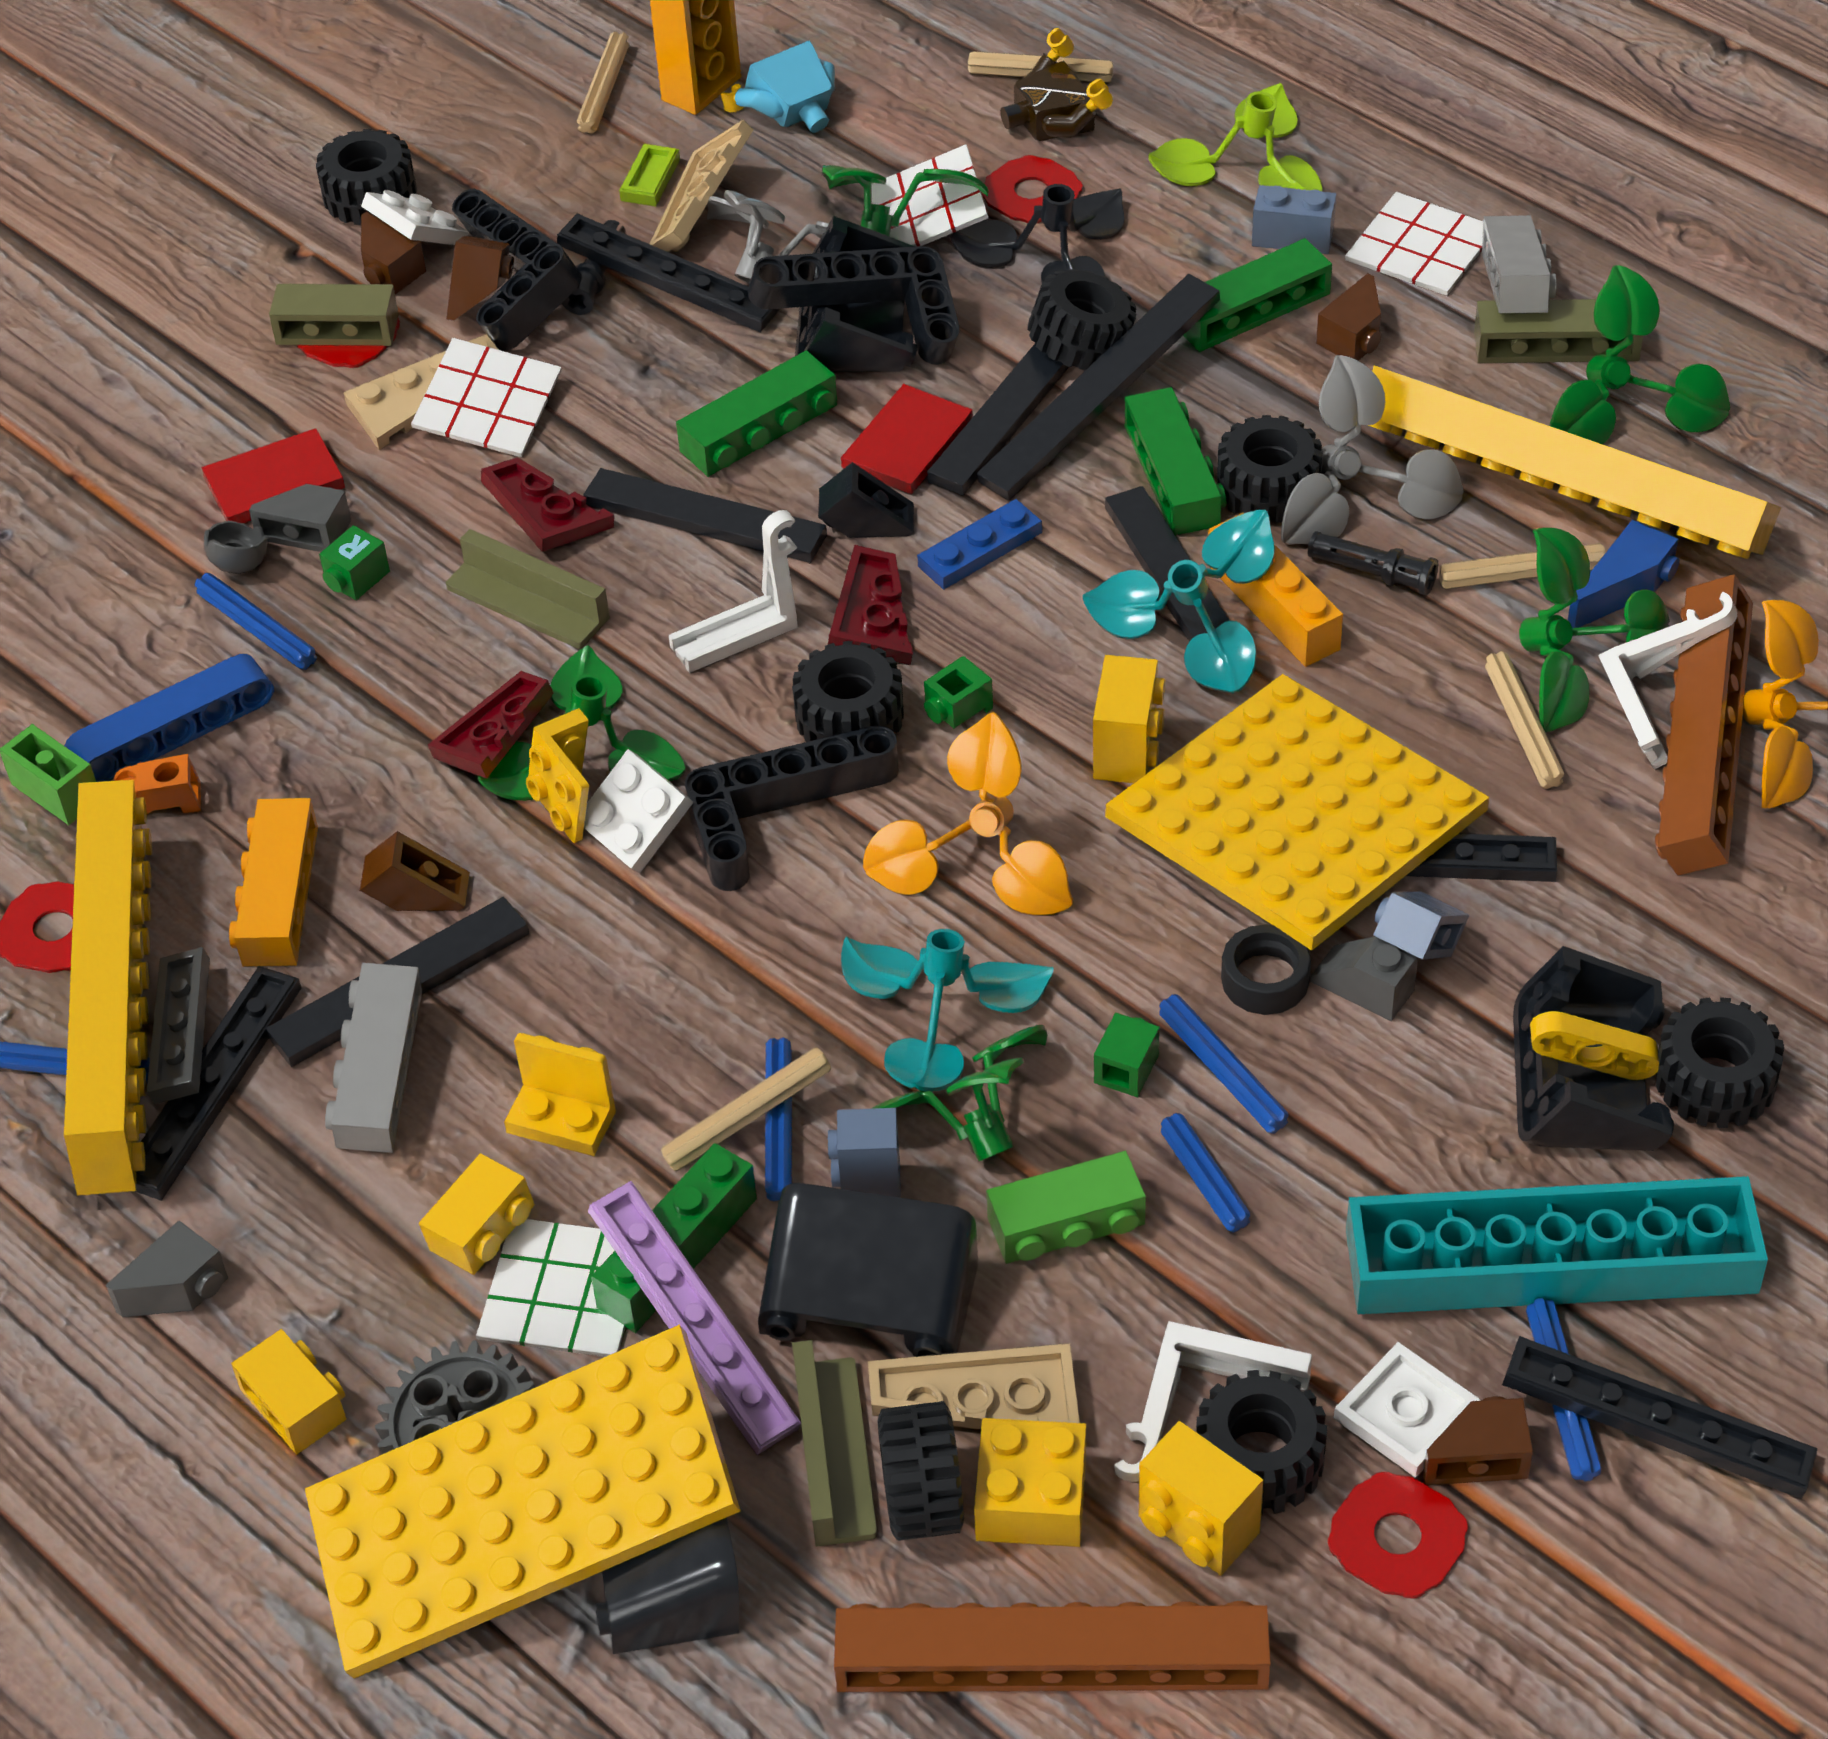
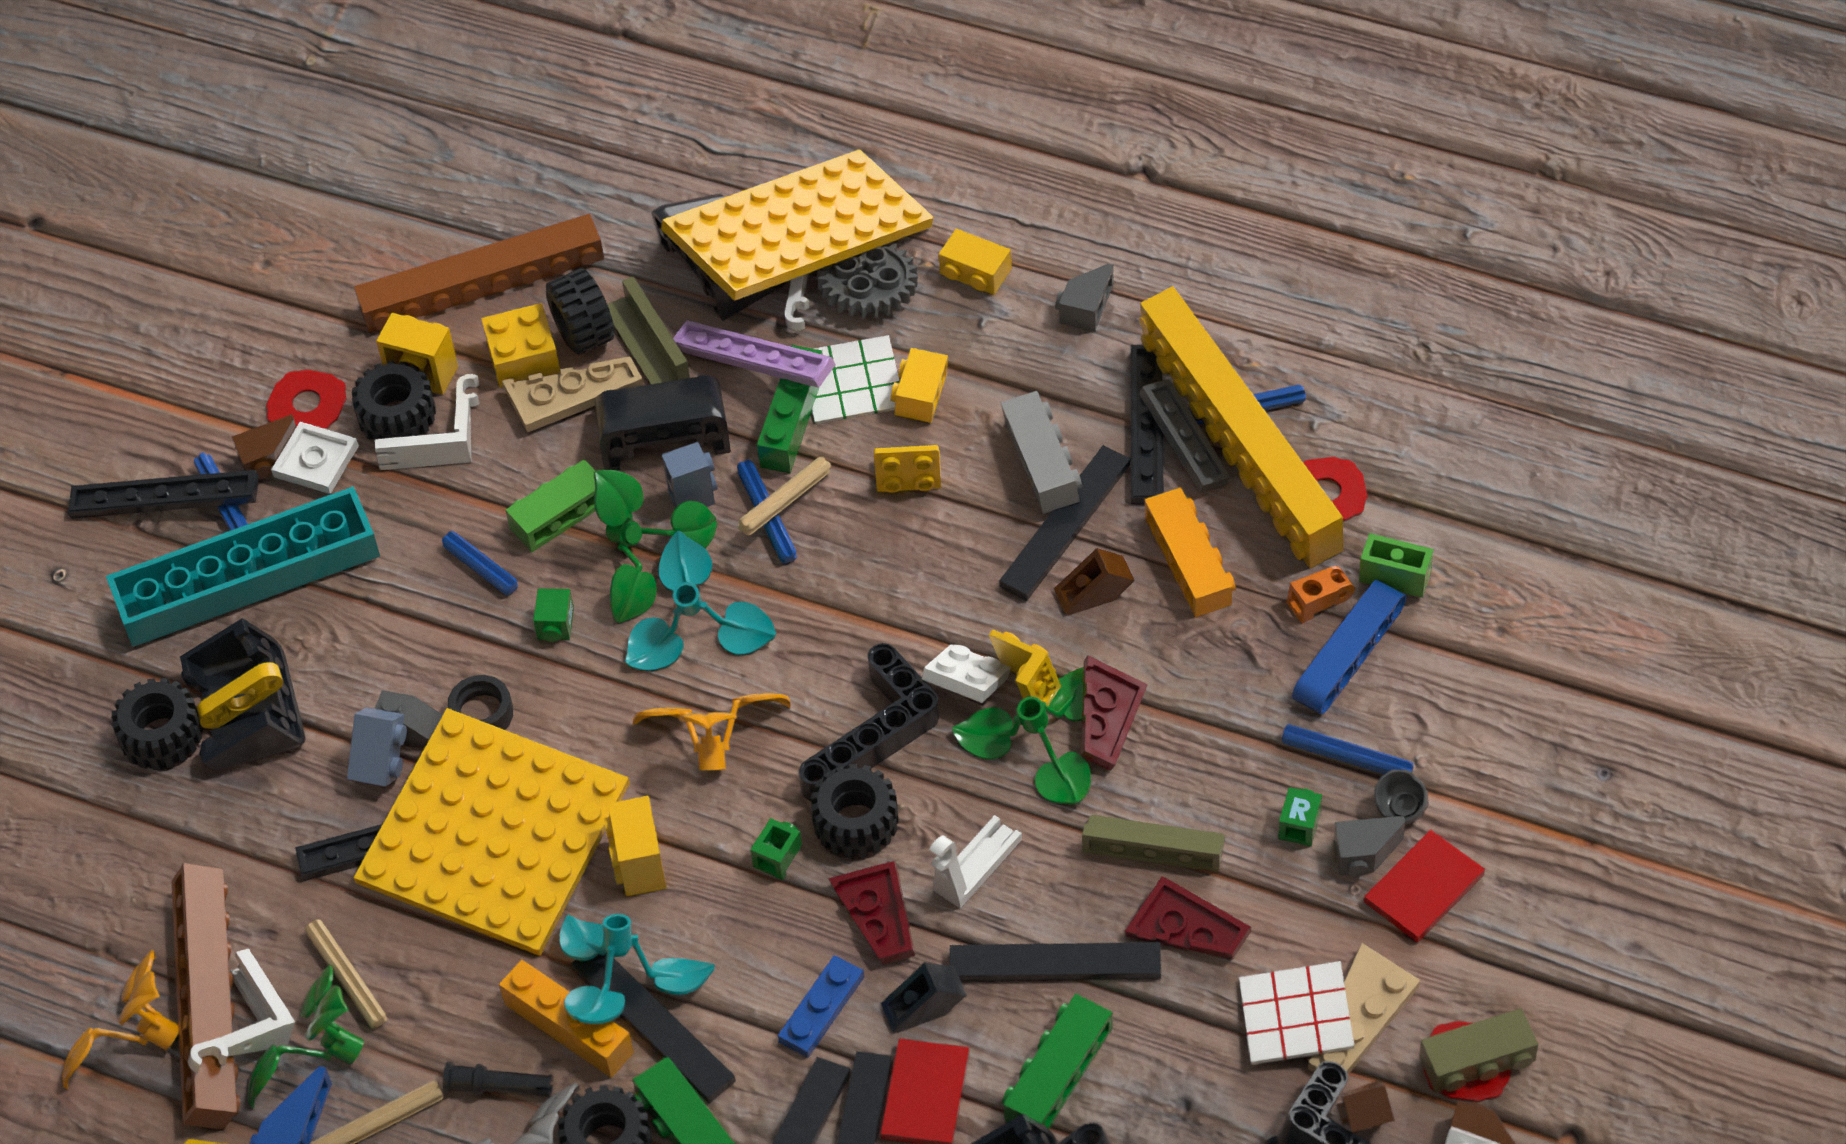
camera: 160 degrees right, 5 degrees up
(1224, 1064) = (491, 637): blue axle -> none

